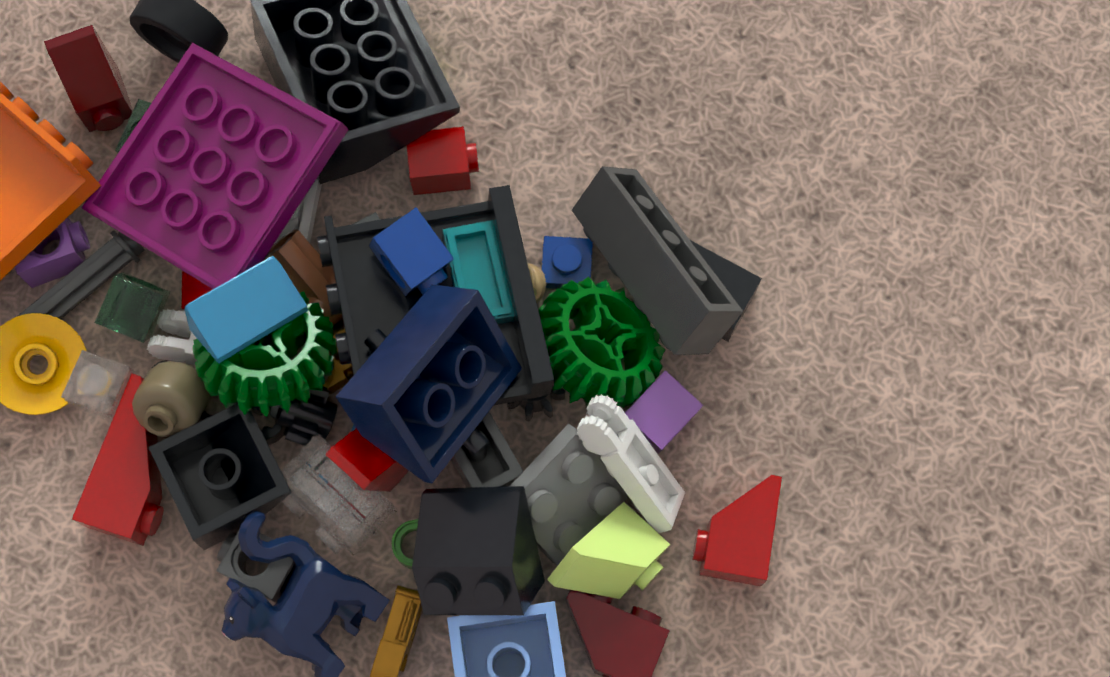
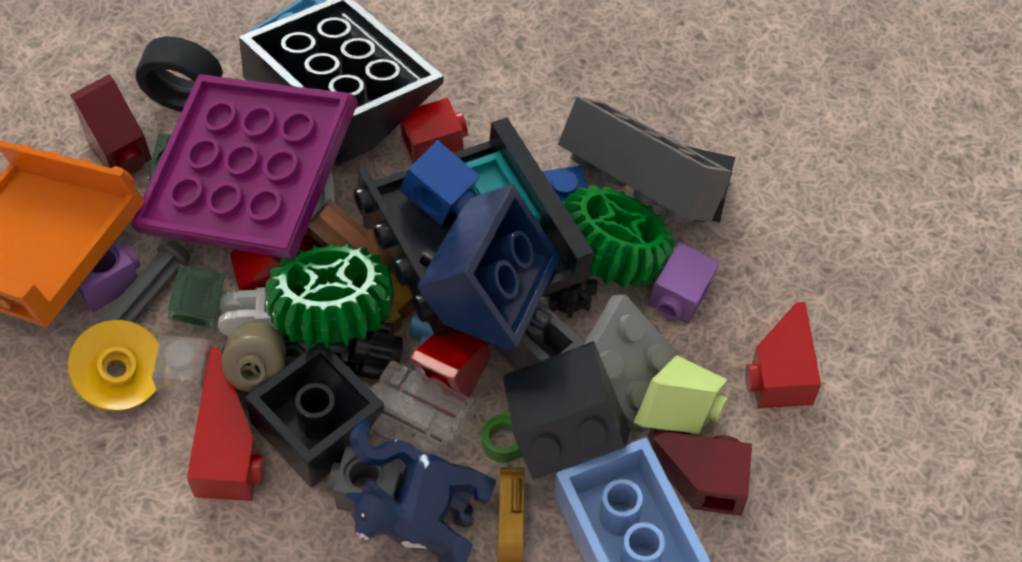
camera: 15 degrees left, 15 degrees down
(244, 309) = (306, 257): dark azure slope -> none
(631, 462) = (674, 316): white hinge -> none

